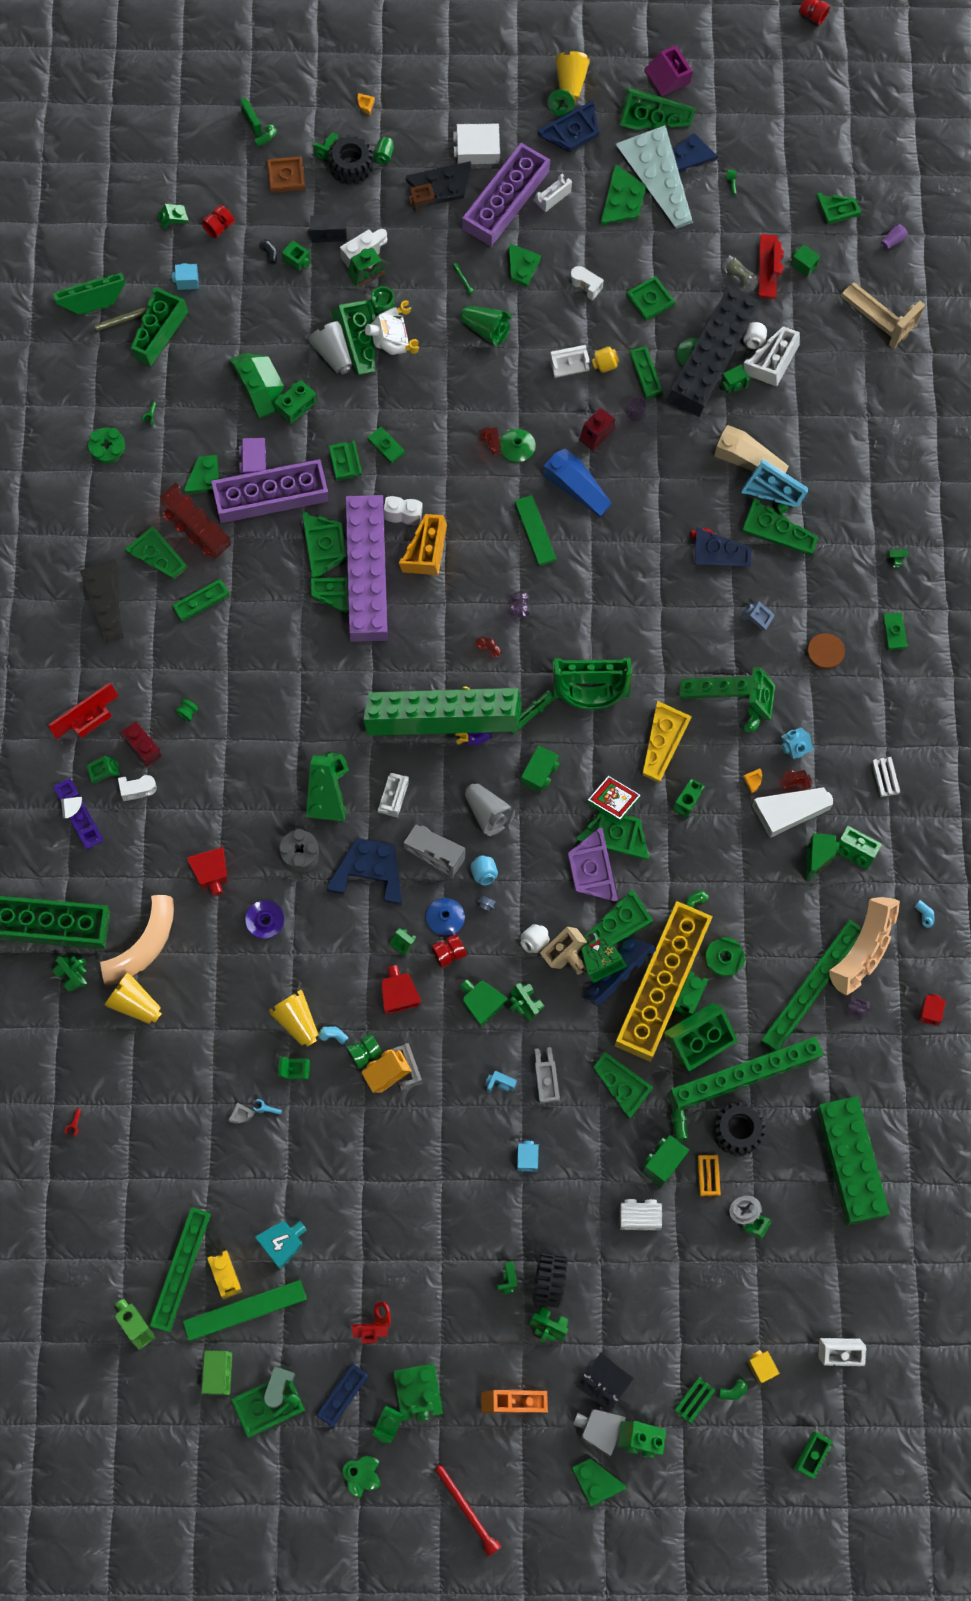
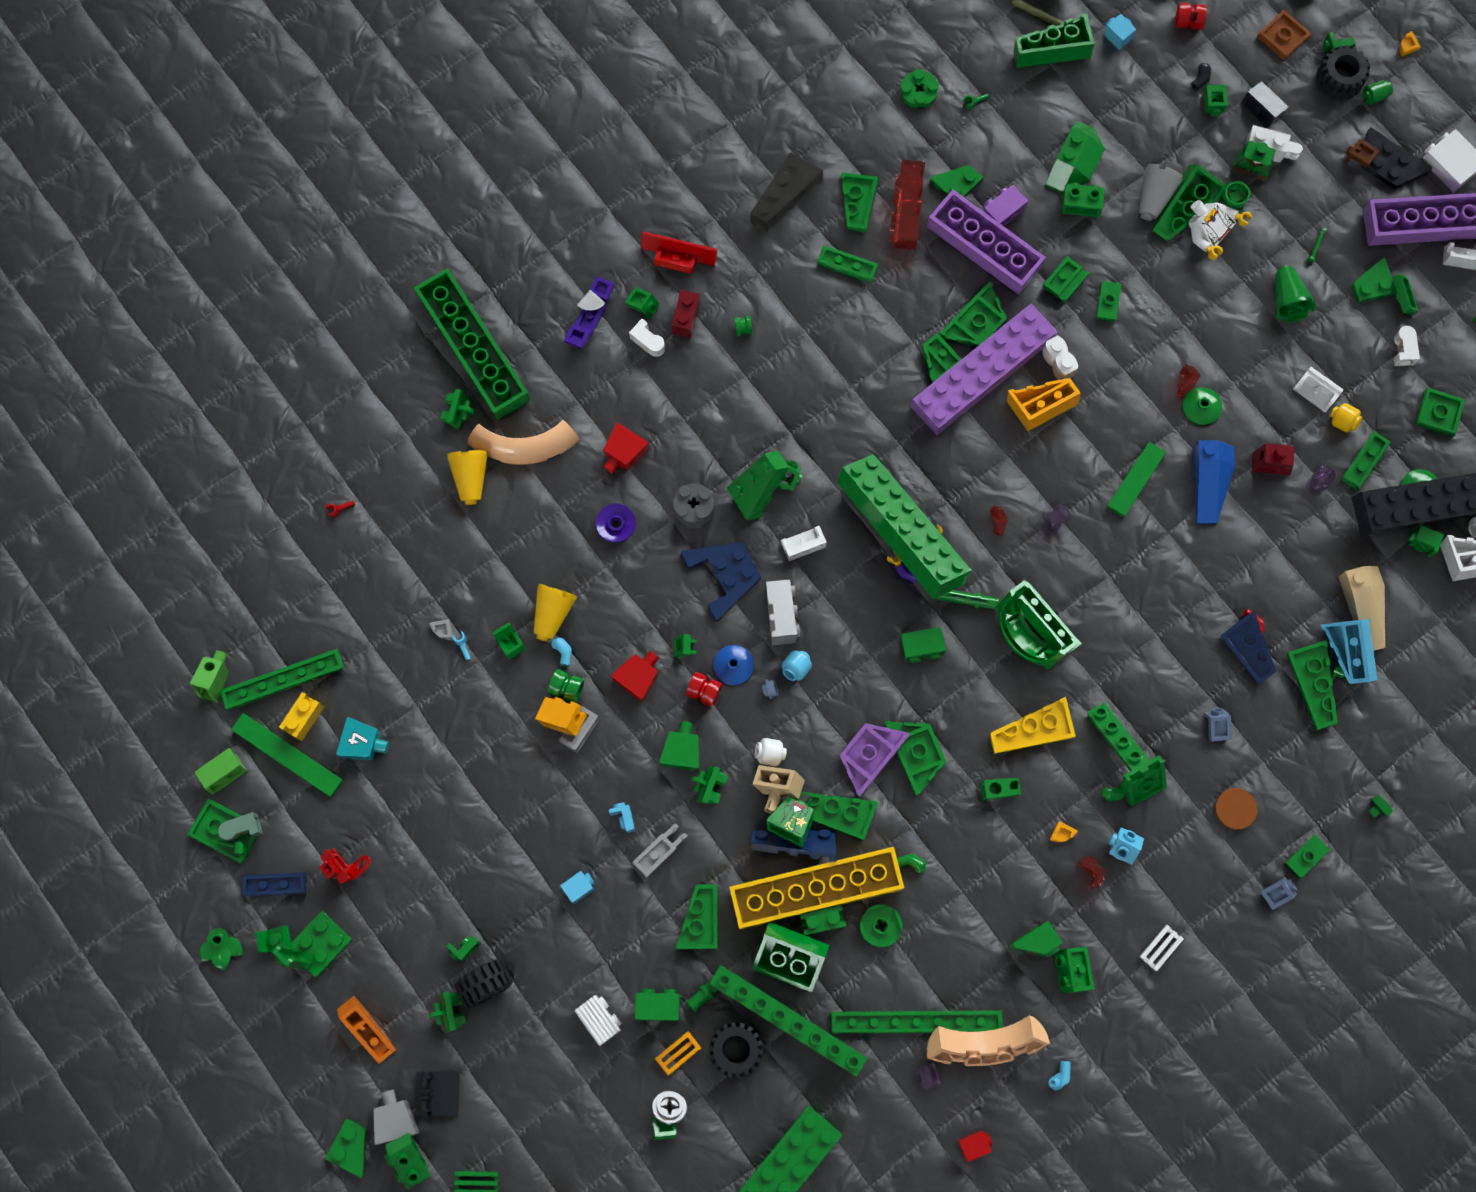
camera: 60 degrees right, 5 degrees up
(488, 809) = (851, 629): light grey cone -> none
(490, 1545) = (236, 1096): red piece -> none
(547, 252) = (1405, 295): none -> green plate
(613, 799) = (945, 726): tile -> none
(791, 809) = (1059, 884): white slope -> none
(907, 668) = (1279, 892): none -> sand blue bracket

